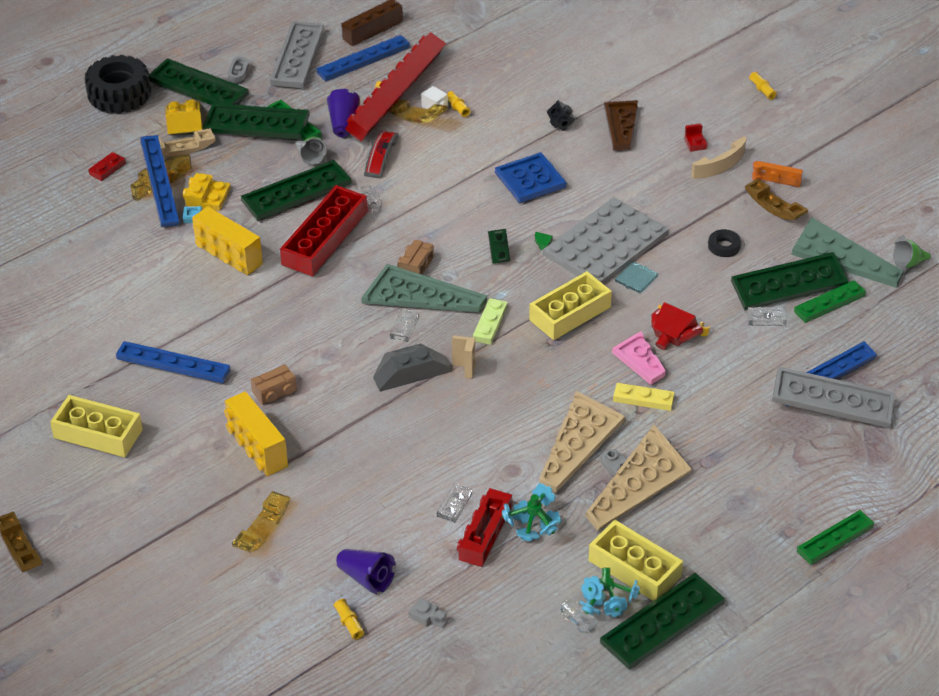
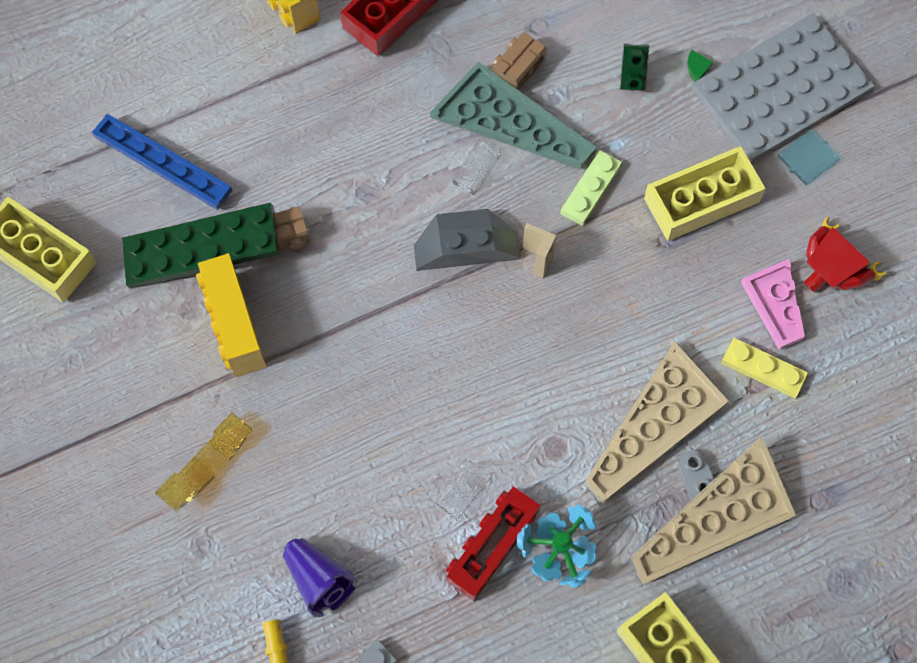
camera: 15 degrees right, 25 degrees up
(209, 404) = (179, 248): none -> dark green plate

